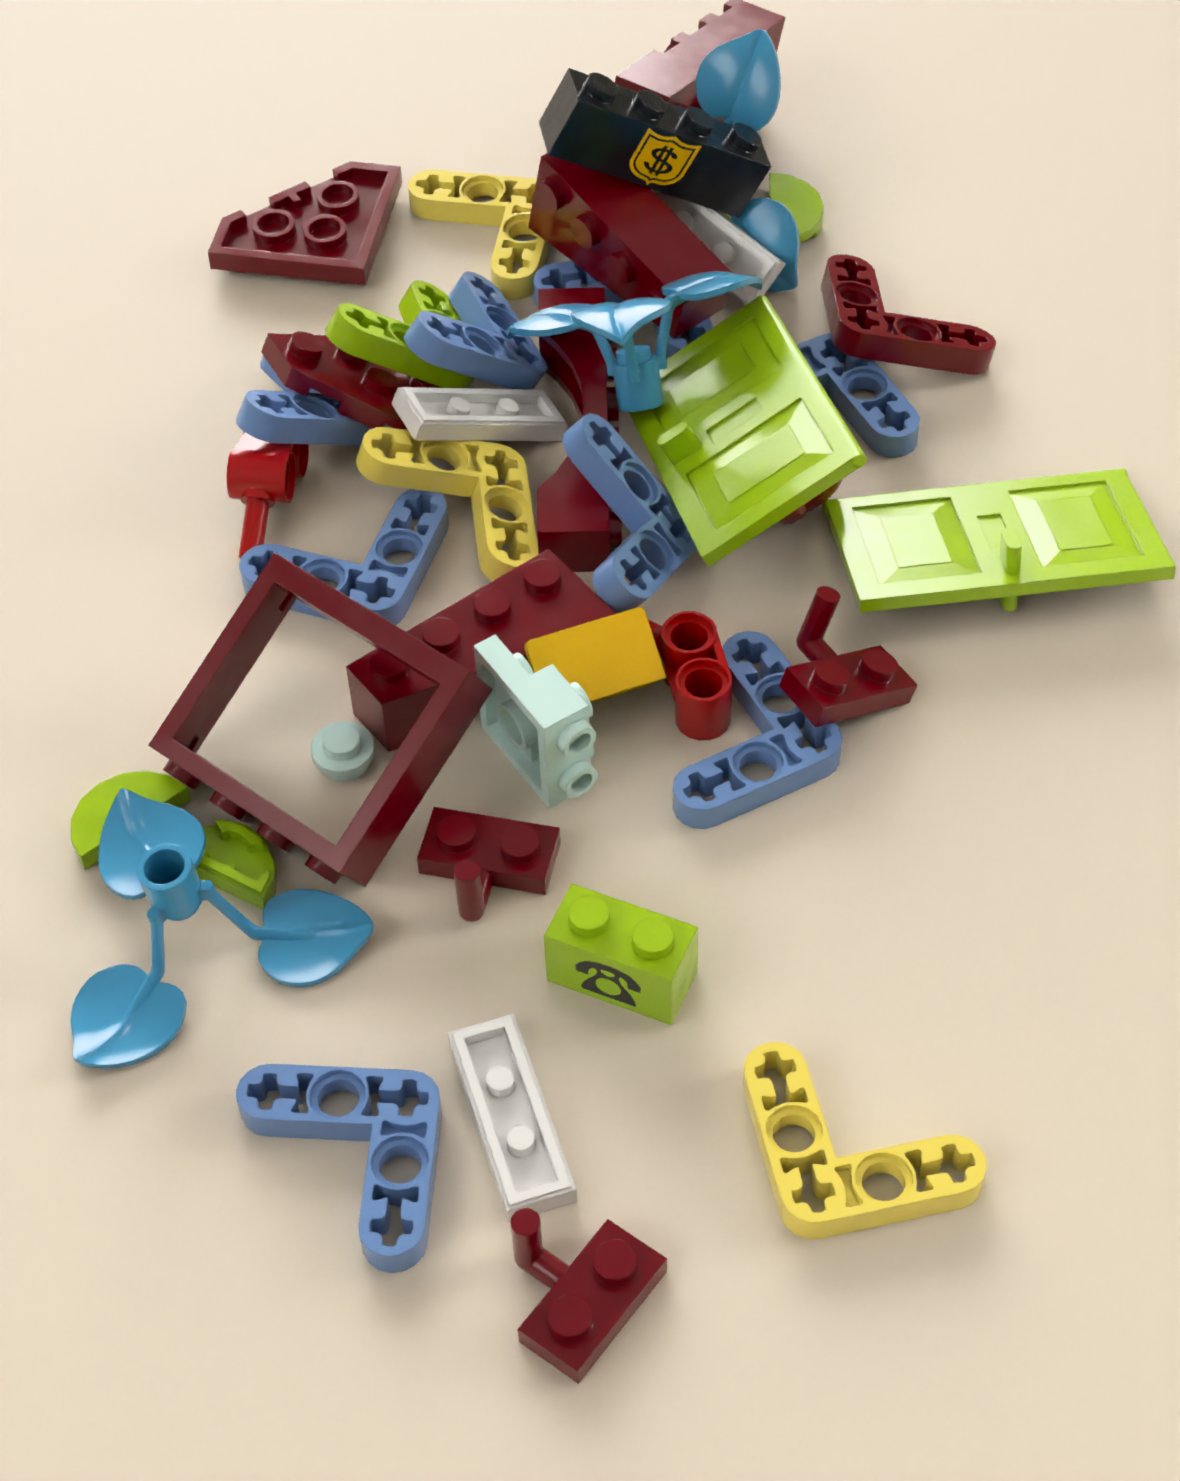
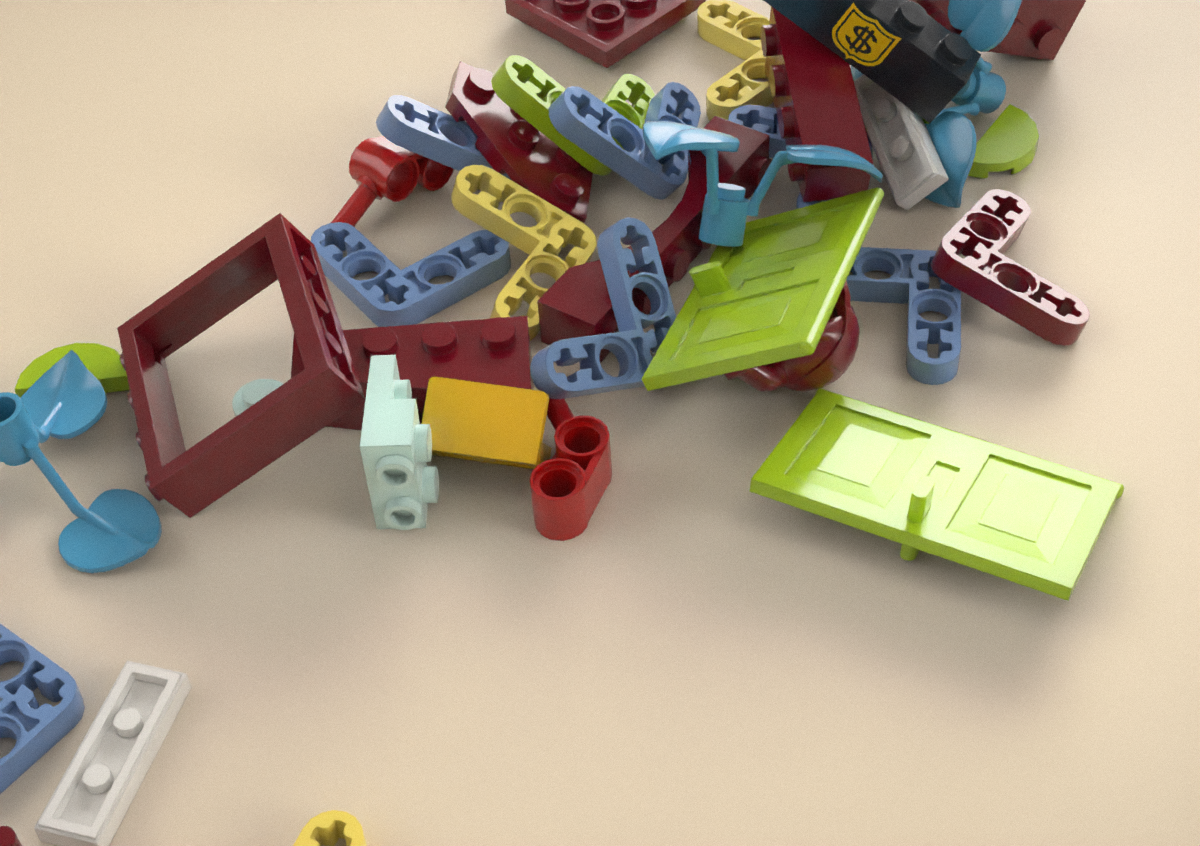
camera: 35 degrees right, 5 degrees down
(238, 862) = (115, 449): lime tile -> none
(478, 414) = (578, 189): white tile -> none
(487, 853) = (288, 536): dark red plate -> none
(621, 953) = (300, 671): lime brick -> none
(777, 745) = (592, 573): medium blue beam -> none
(843, 684) = (686, 544): dark red plate -> none

